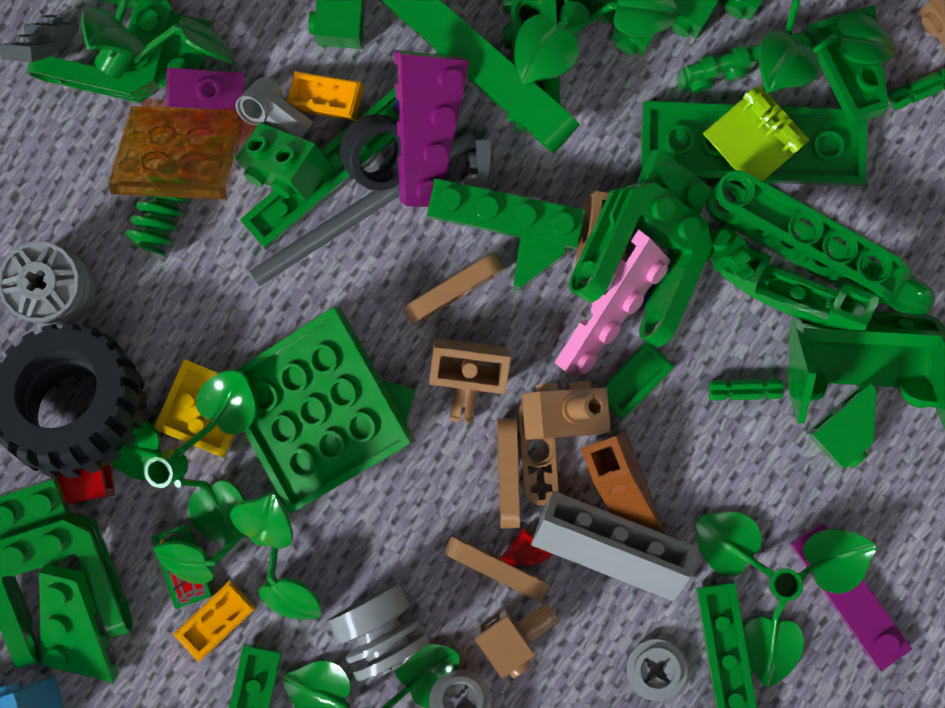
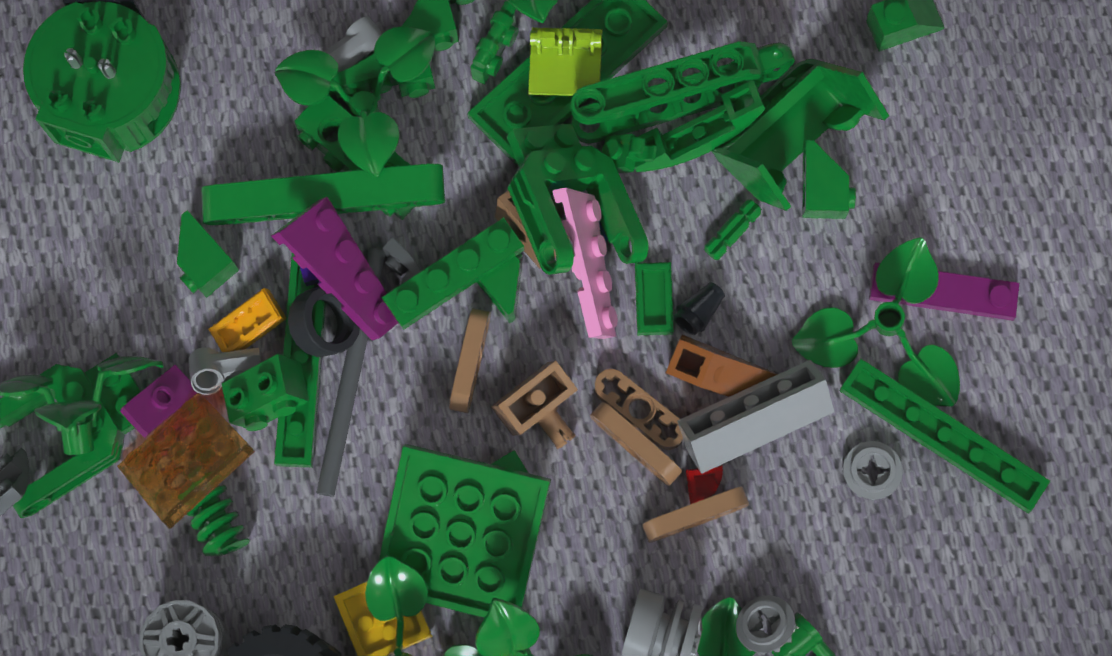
camera: 40 degrees left, 10 degrees down
(510, 642) = (755, 550): medium nougat brick -> none
(565, 412) = (631, 361): medium nougat brick -> none
(658, 423) = (698, 309): none -> black cone

